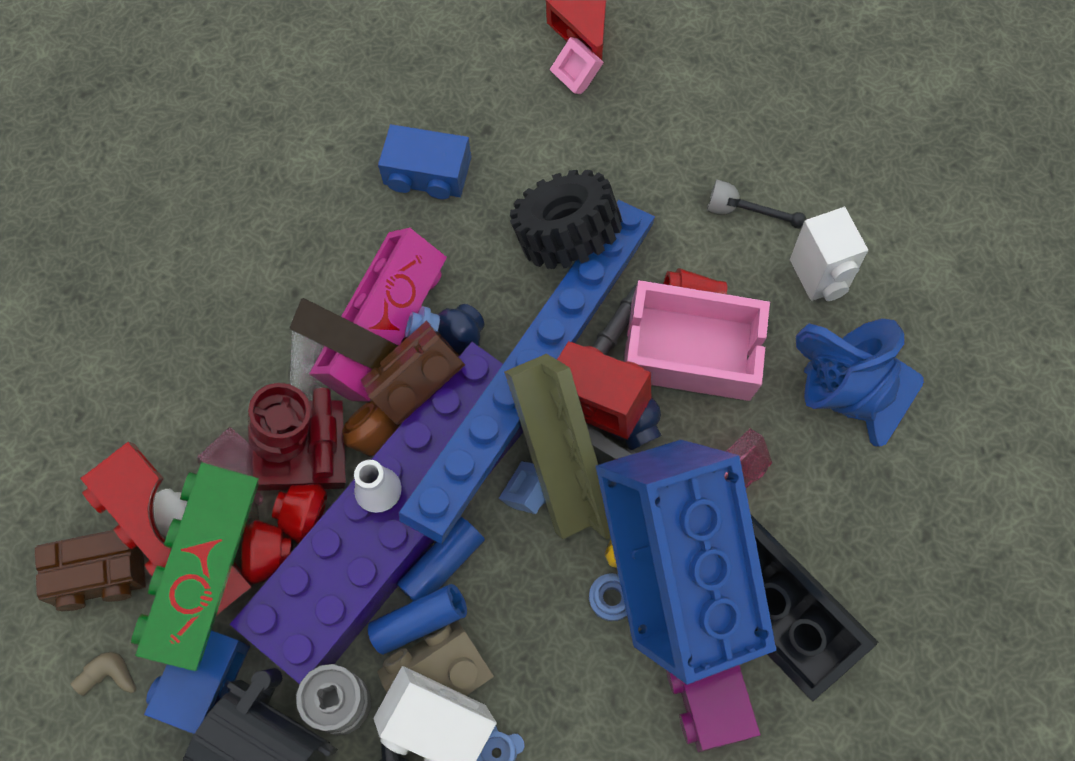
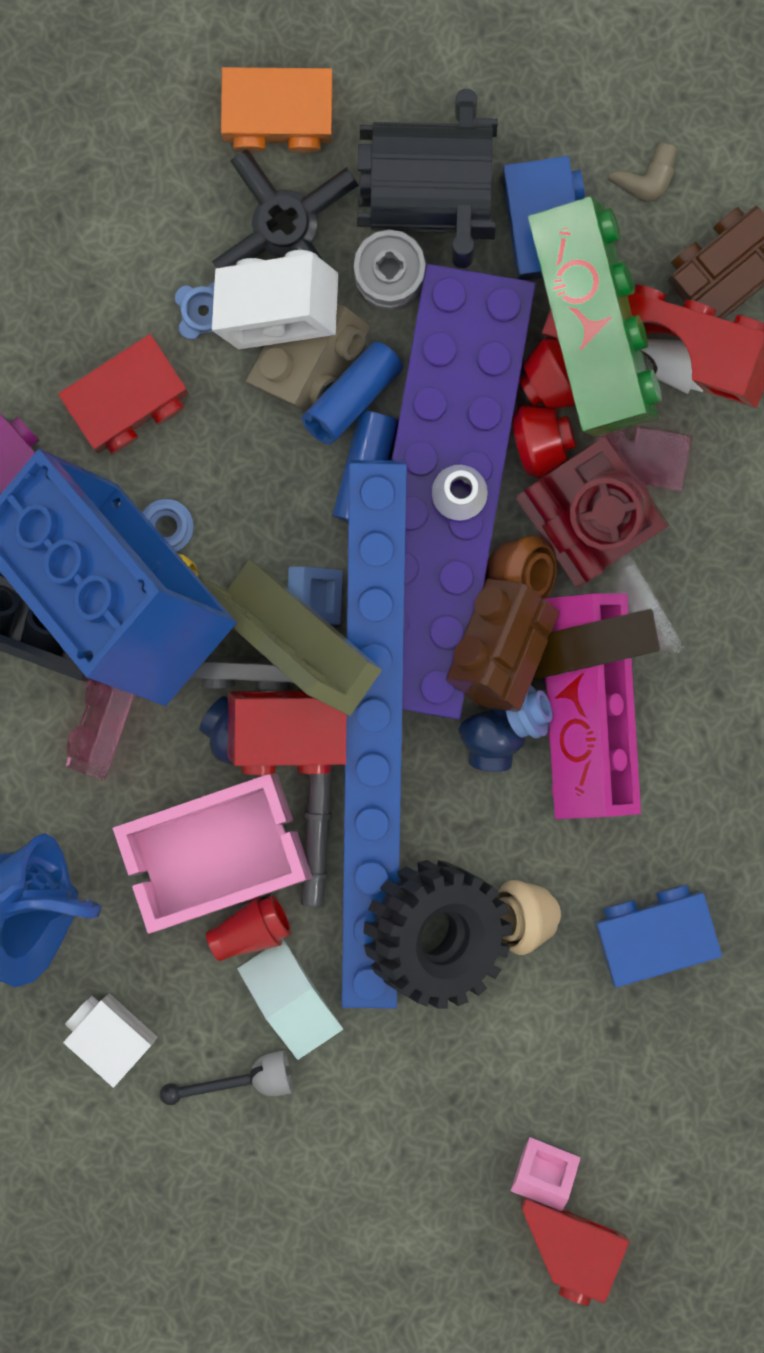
camera: 145 degrees right, 20 degrees up
(495, 209) = (532, 915): none -> tan cone
(593, 712) = (124, 396): none -> red brick
(689, 238) = (289, 1000): none -> light aqua slope

